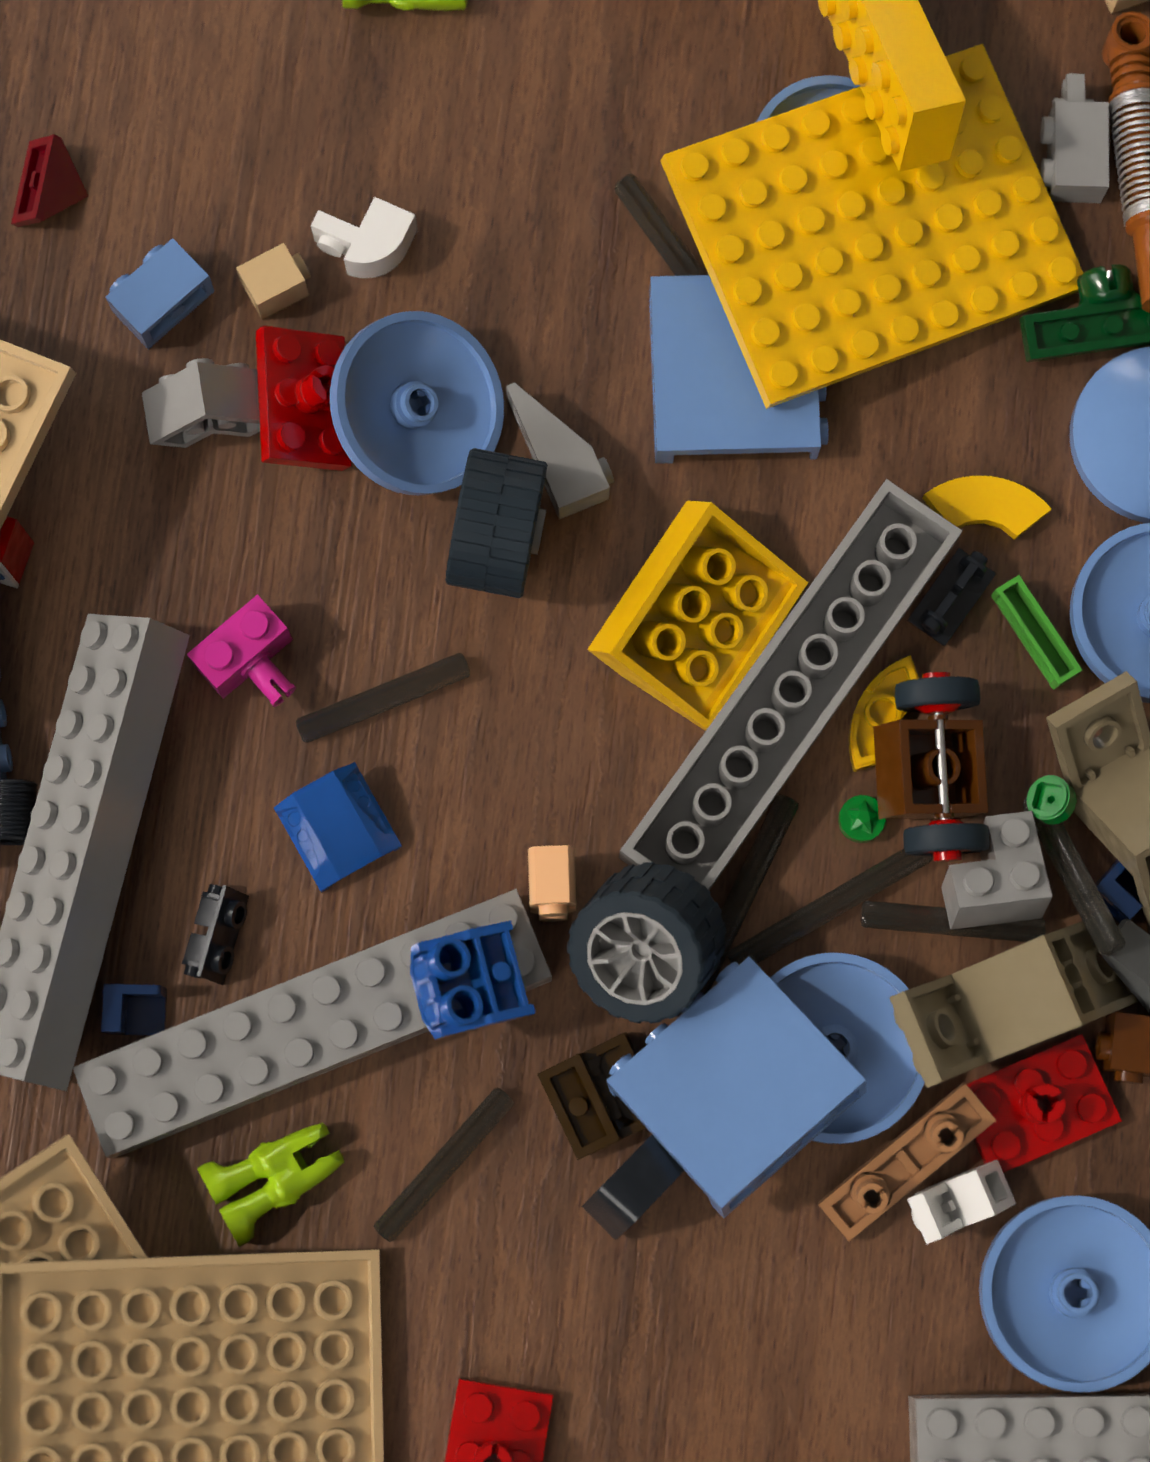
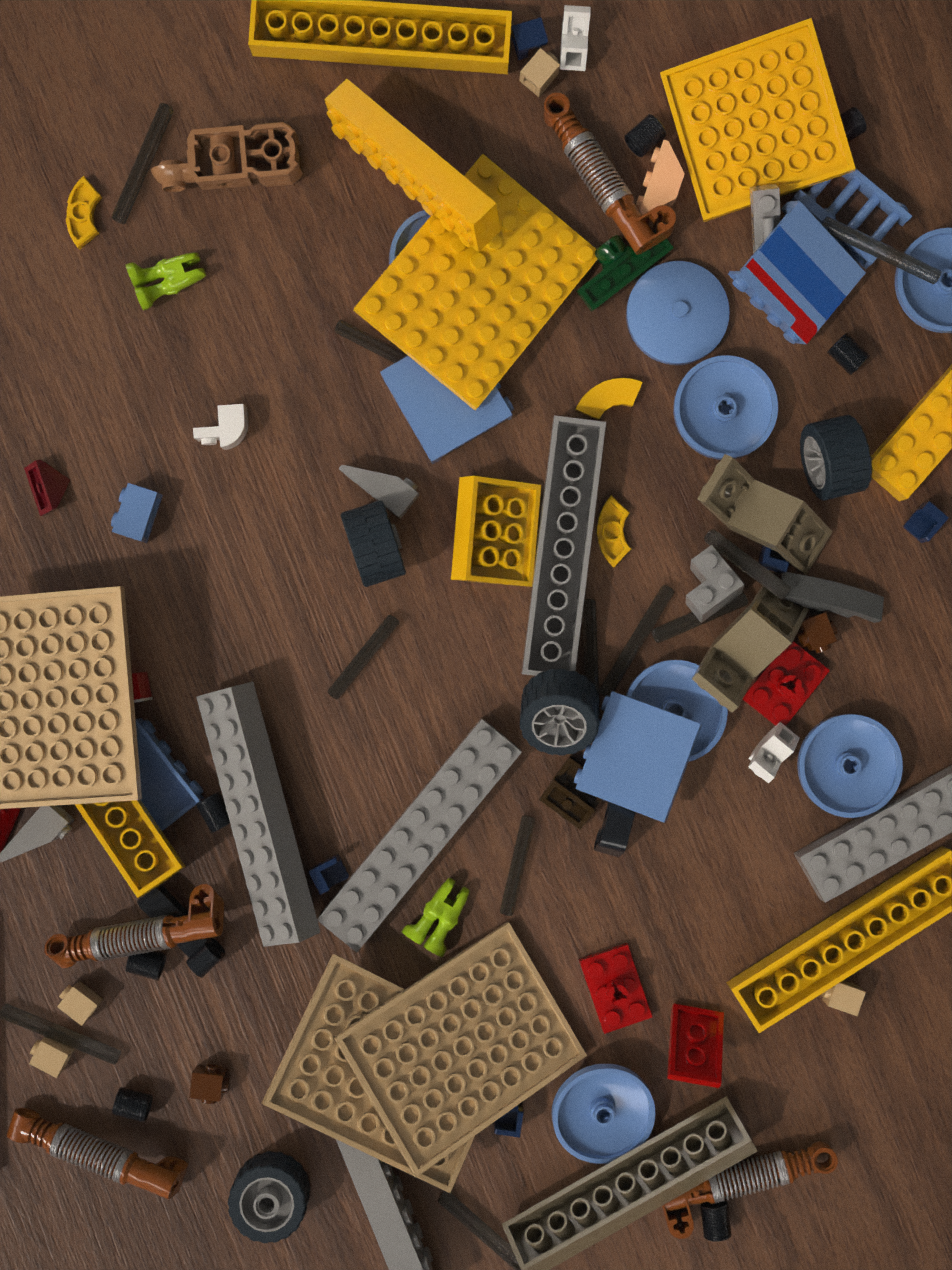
camera: 30 degrees left, 10 degrees up
(202, 402) = (194, 557): light grey brick -> none
(224, 914) = (346, 804): black hinge -> none
(243, 650) = (283, 672): dark pink brick -> none
(274, 280) = (190, 474): tan brick -> none
(295, 398) = (240, 529): red plate -> none
(337, 825) = (377, 732): blue slope -> none
(415, 402) = (298, 502): medium blue dish -> none
(468, 980) = (485, 778): blue slope -> none
(552, 882) = (497, 706): light nougat brick -> none
(860, 819) = (629, 590): green tile -> none
(906, 1161) = (737, 746): medium nougat plate -> none
(934, 767) = (653, 549): reddish brown brick -> none
(952, 595) = (616, 453): black hinge -> none
(1036, 632) = (667, 450): bright green piece -> none
(1051, 799) = (718, 533): green tile -> none
(1076, 145) = (558, 181): light grey hinge -> none

